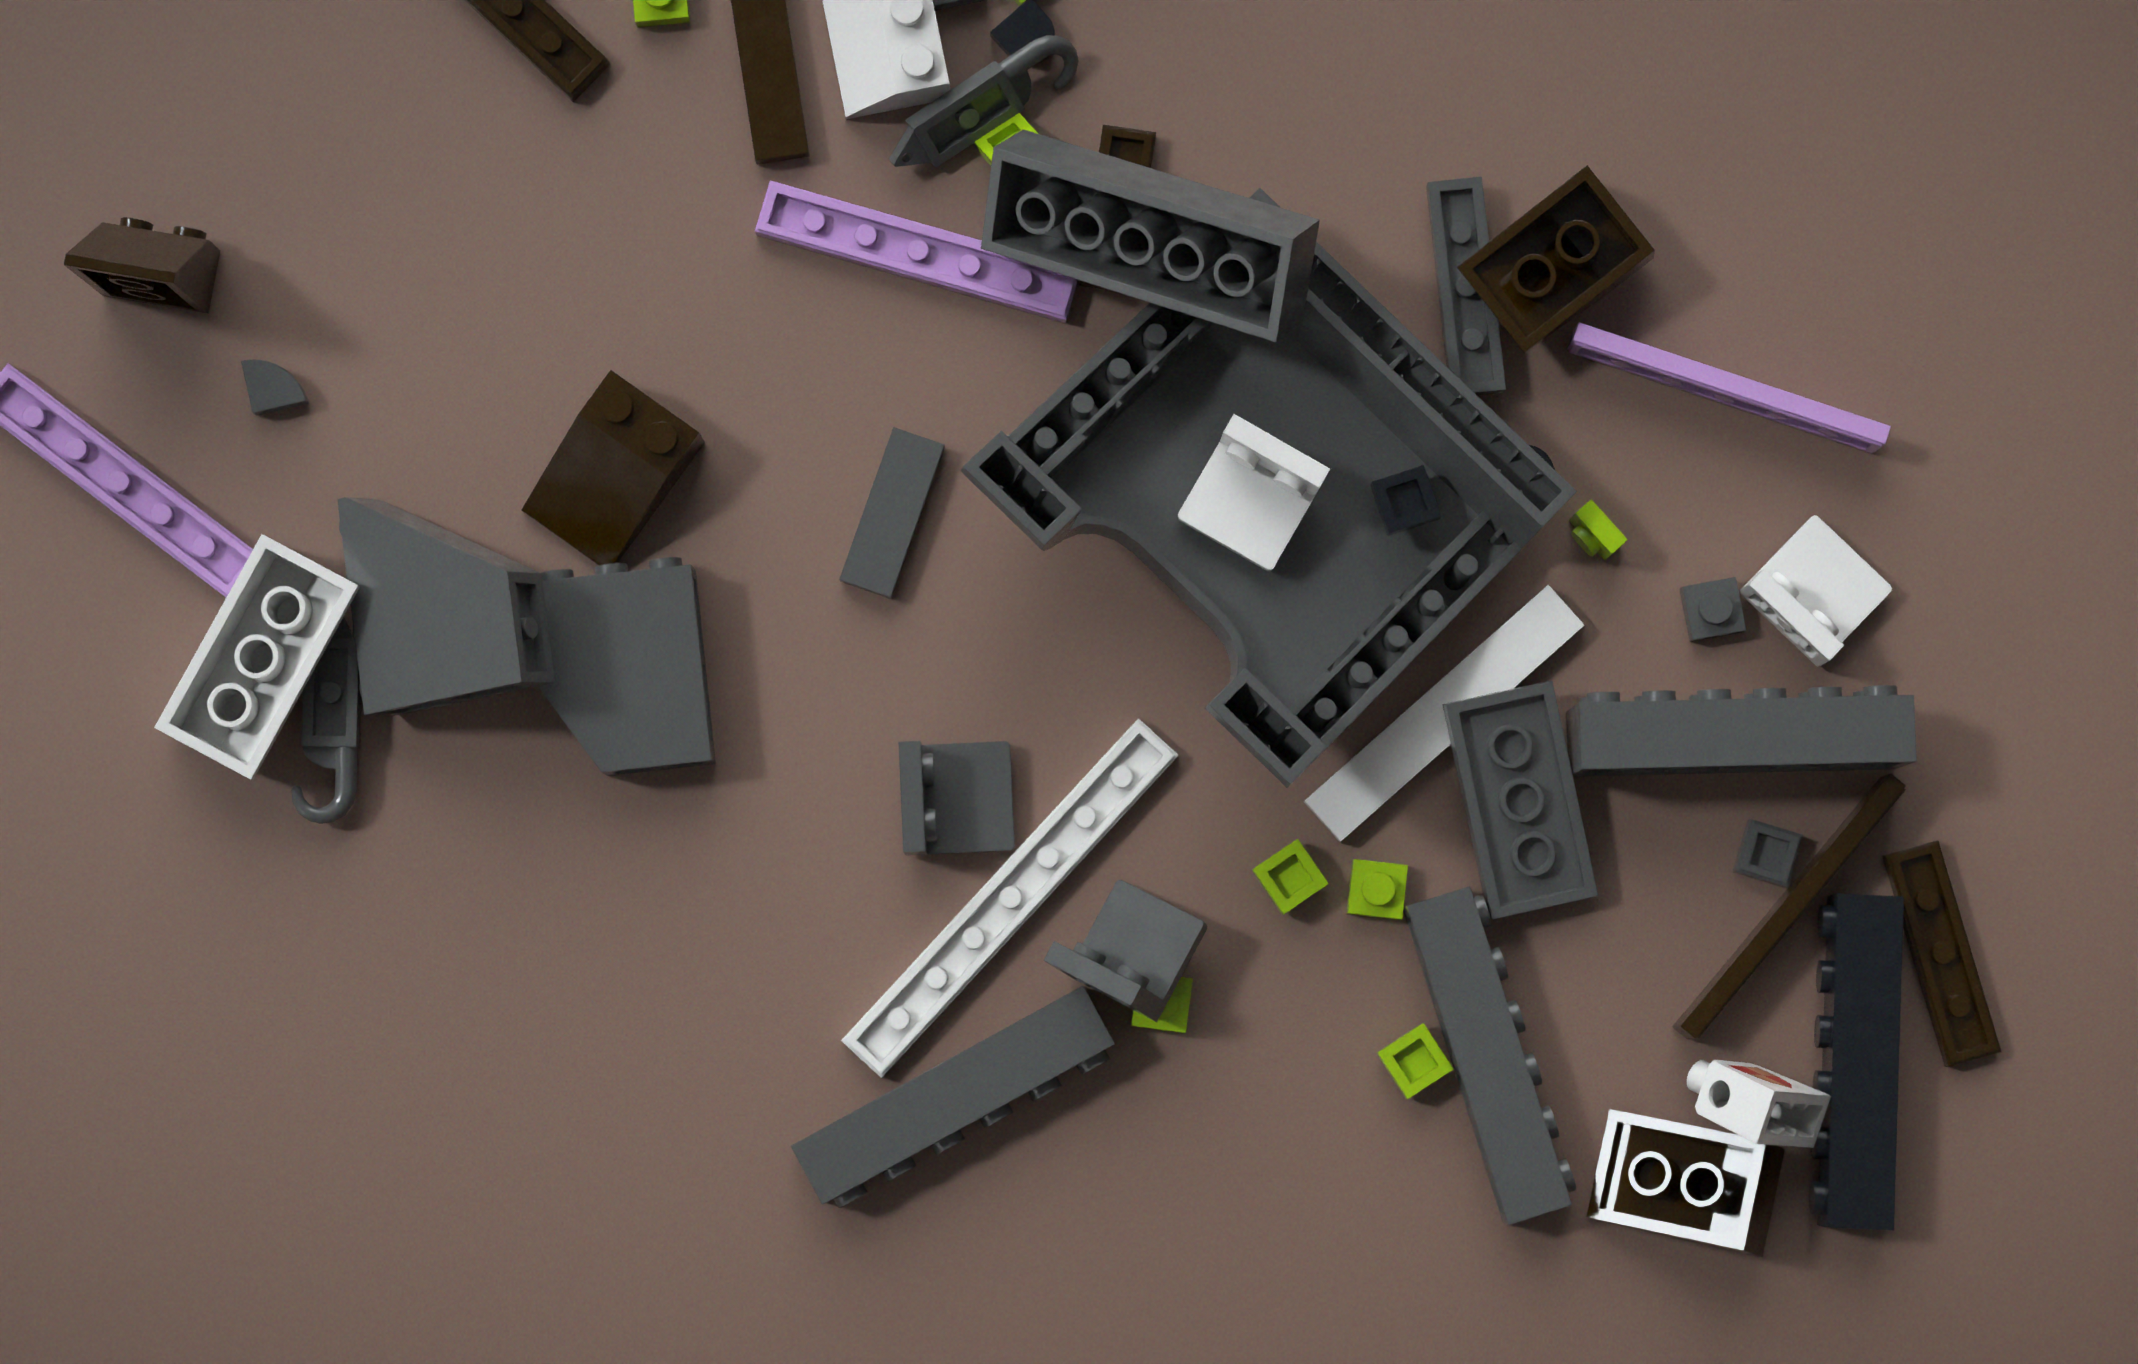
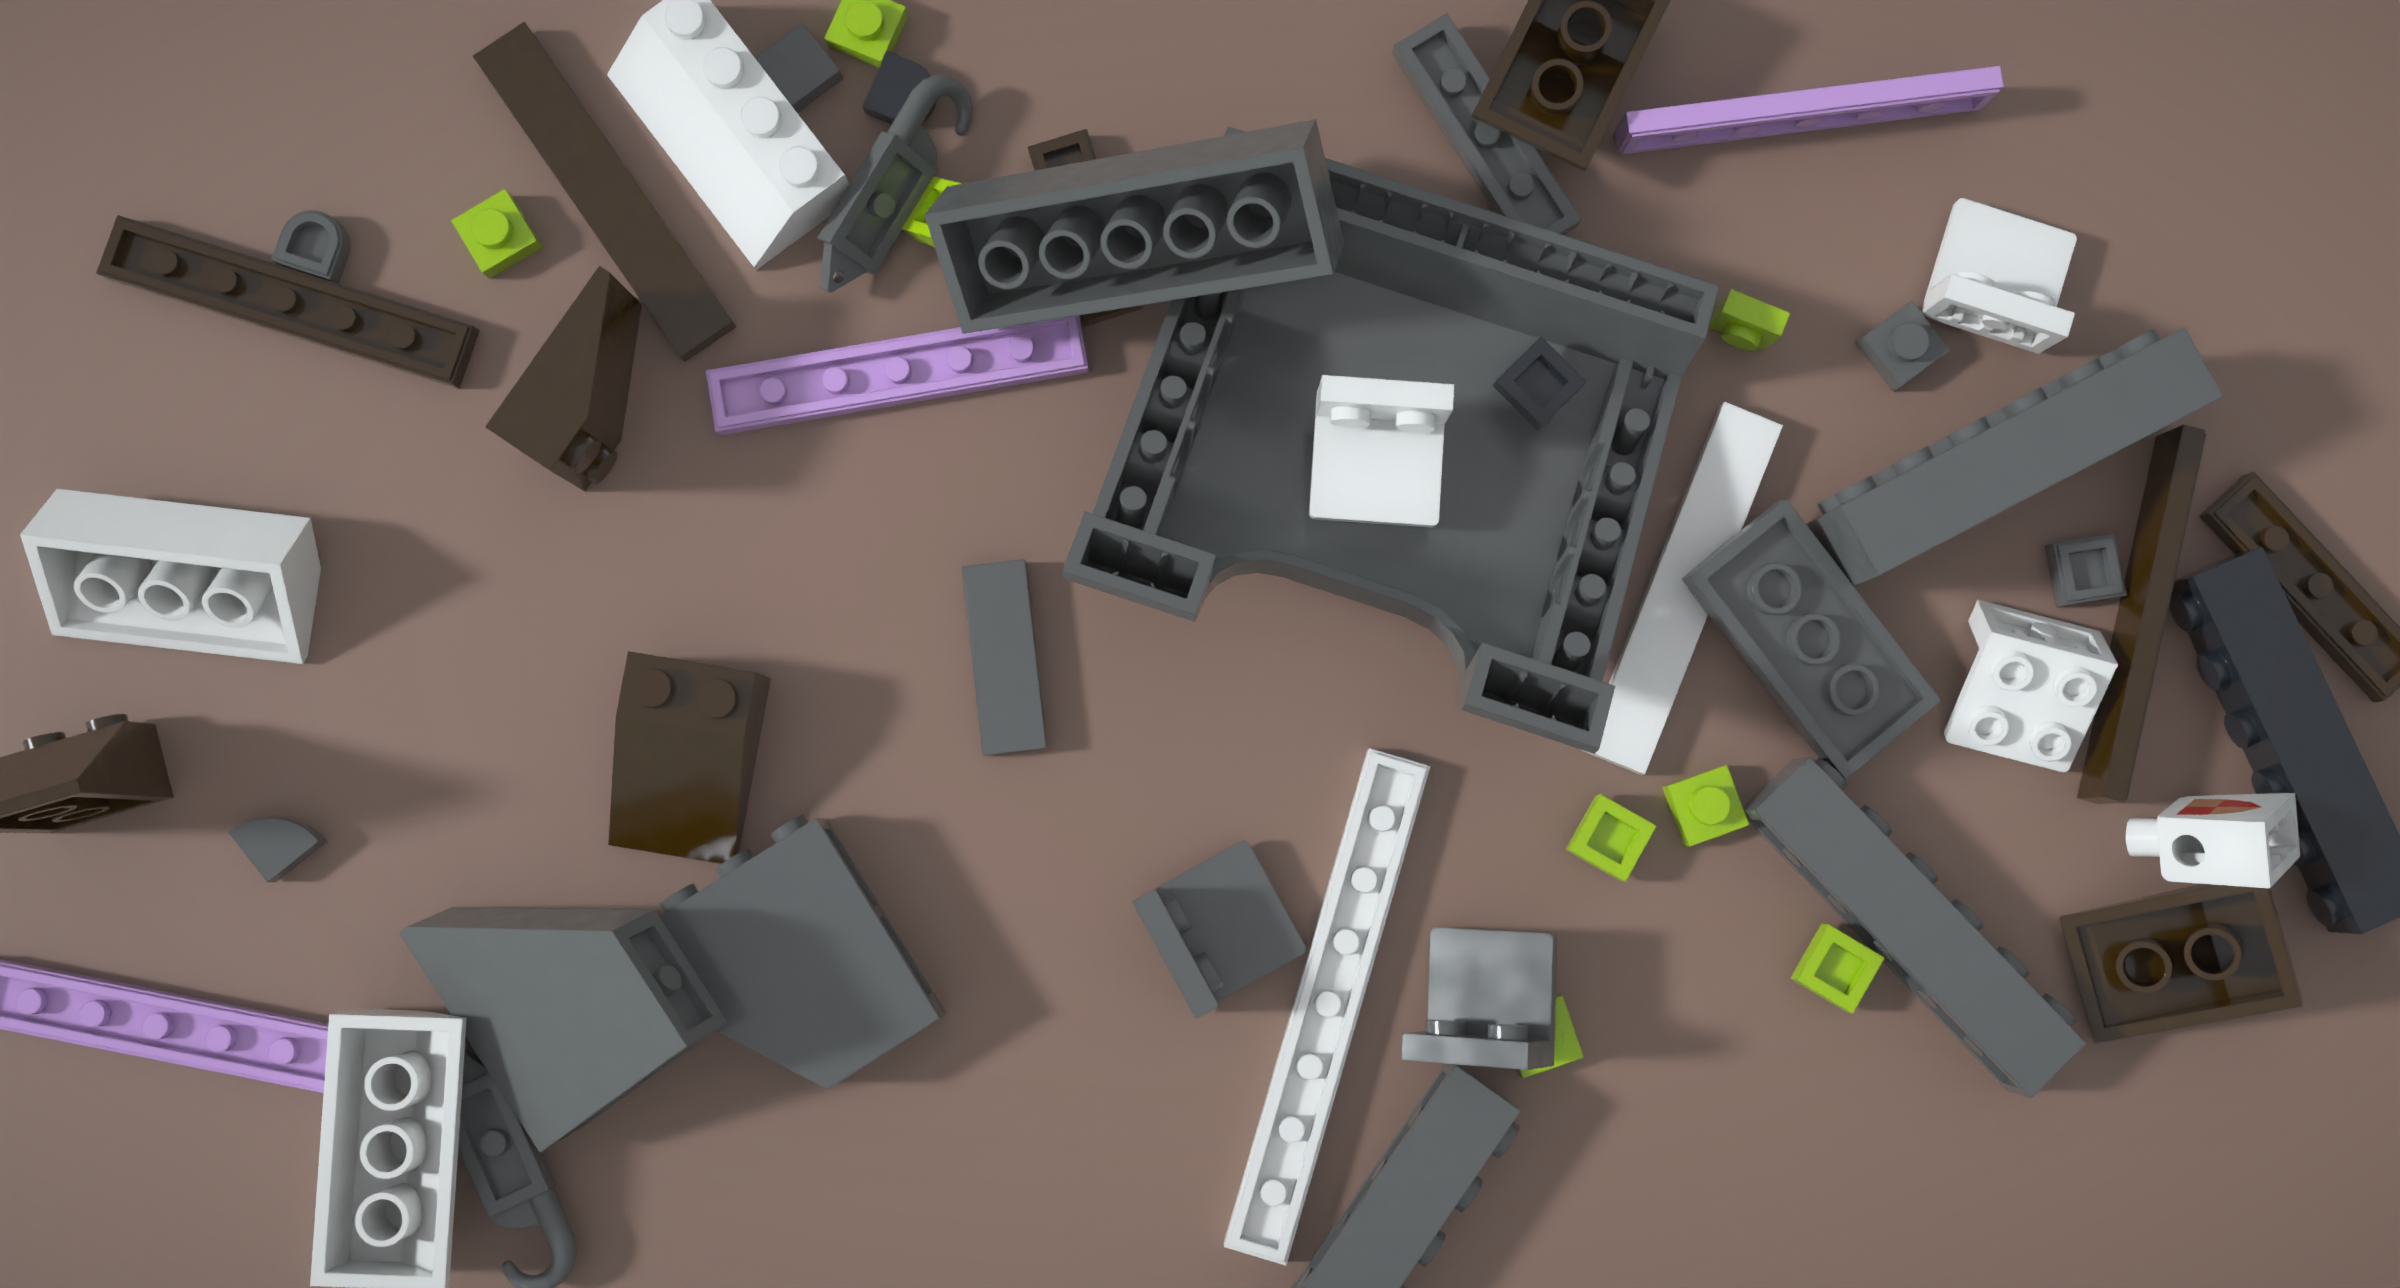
camera: 30 degrees left, 0 degrees up
(294, 146) = (175, 575): none -> white slope
(662, 154) = (576, 388): none -> dark brown slope
(1673, 919) = (2030, 687): none -> white bracket

